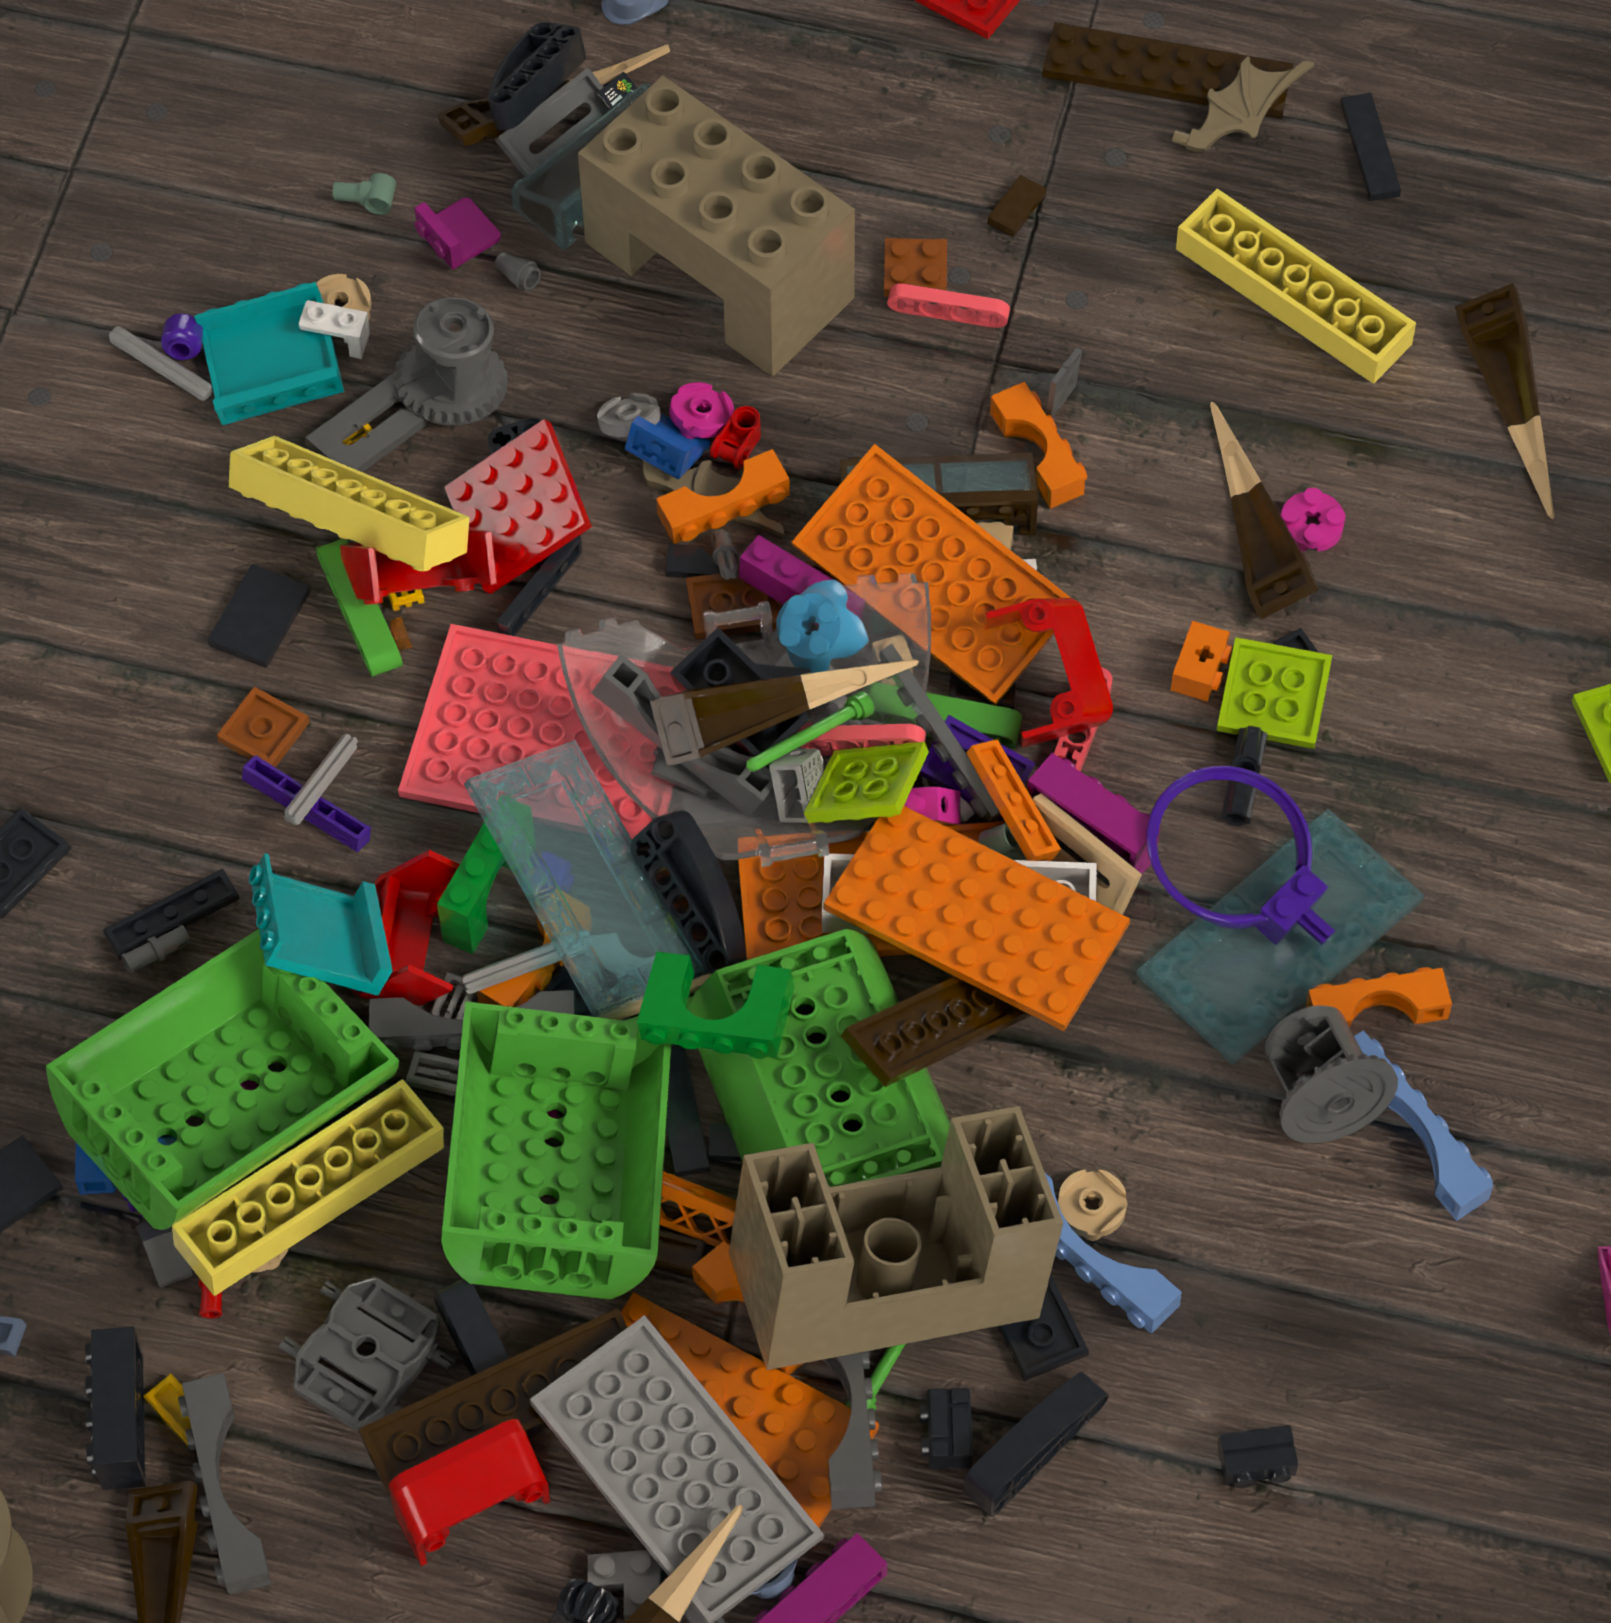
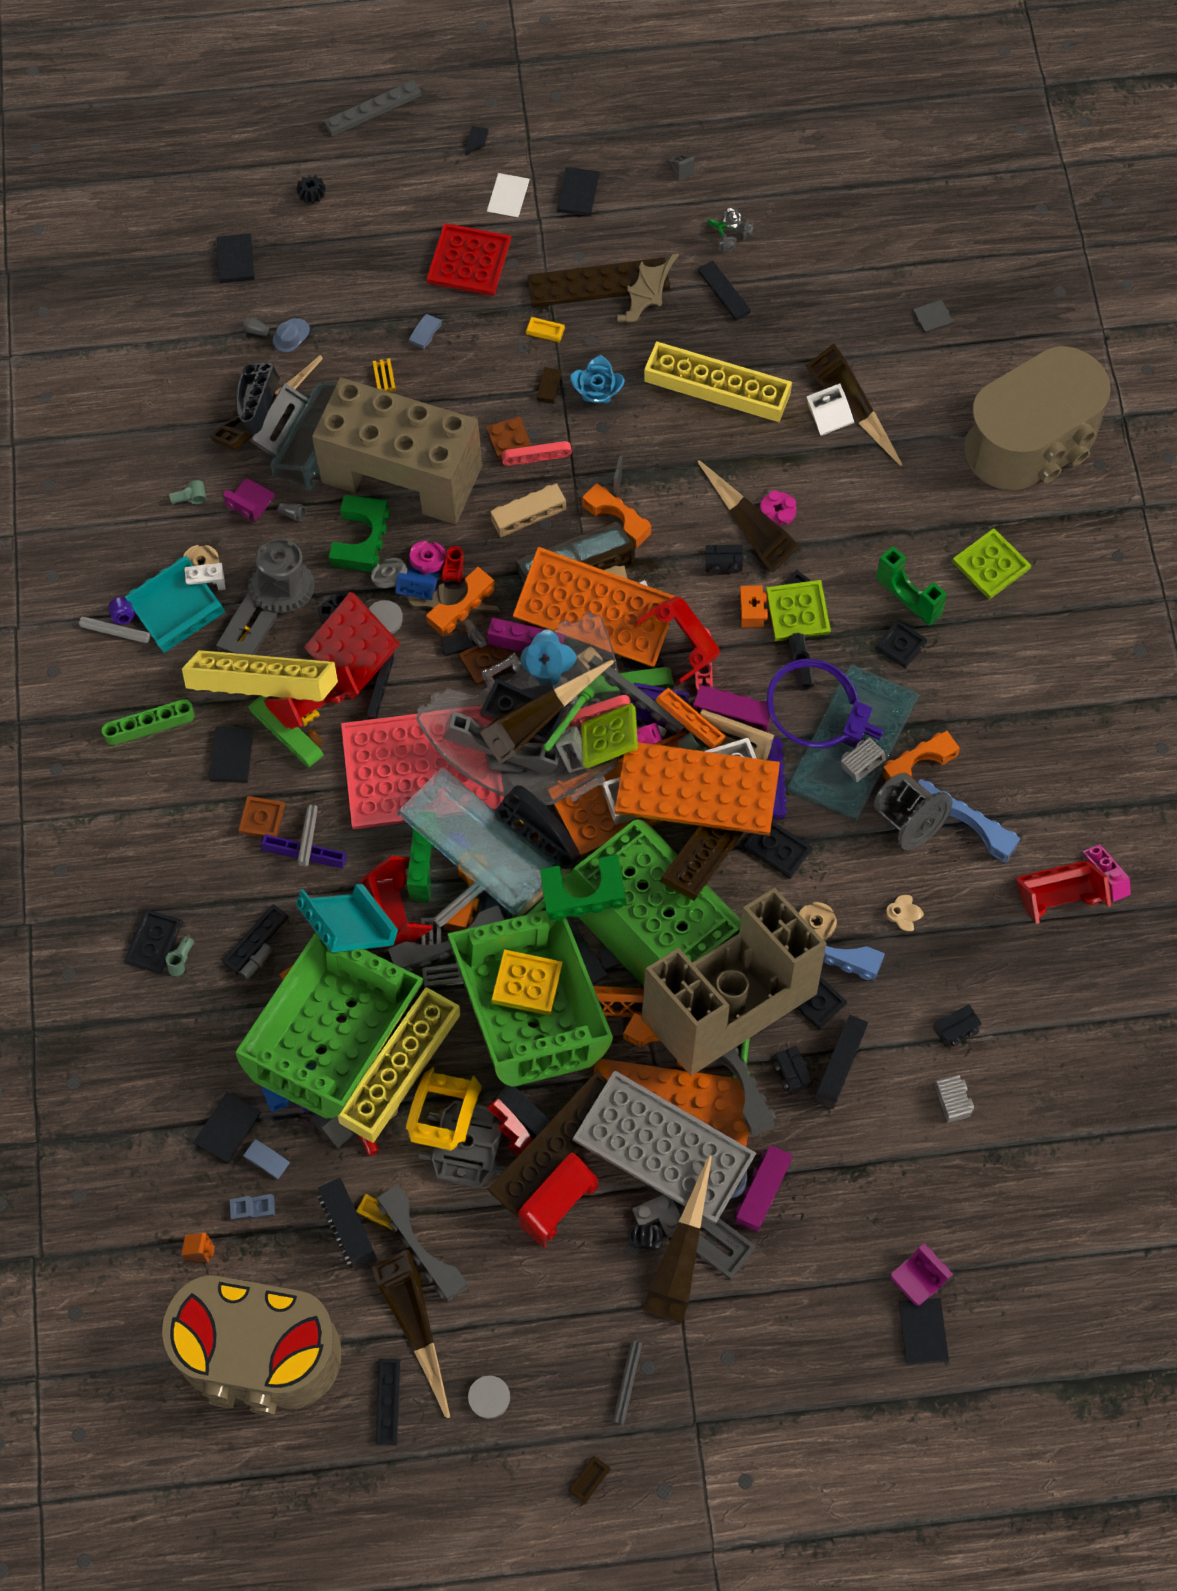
camera: 20 degrees left, 5 degrees up
(38, 1262) = (266, 1159): none -> sand blue slope
(40, 899) = (179, 956): none -> sand green pin
(135, 515) = (141, 729): none -> bright green beam
(363, 1242) = (449, 1086): none -> yellow wedge
(442, 1346) = (510, 1127): none -> red slope
(565, 1127) = (526, 982): none -> yellow plate
(598, 482) = (388, 614): none -> light grey tile
(604, 375) = (363, 555): none -> green arch
(616, 90) = (305, 390): black sticker -> none
(758, 89) = (381, 364): none -> yellow tile
(848, 59) = (424, 331): none -> sand blue slope
(897, 390) = (528, 510): none -> tan brick
(1048, 117) = (545, 329): none -> yellow tile
(1080, 1064) = (779, 850): none -> black tile
(1102, 209) = (597, 372): none -> dark azure brick
(1119, 963) = (775, 754): none -> dark purple piece
(1186, 570) = (723, 558): none -> black brick
(1200, 1571) = (954, 1098): none -> light grey brick
(1251, 1243) = (906, 912): none -> tan plate
(1278, 966) = (862, 759): none -> light grey brick
(1420, 35) = (732, 221): none -> dark grey plant
(1428, 805) = (901, 644): none -> black tile
(1464, 388) = (830, 409): none -> white slope
(1493, 747) = (926, 603): none -> green arch
(1531, 1291) = (1062, 886): none -> red windscreen

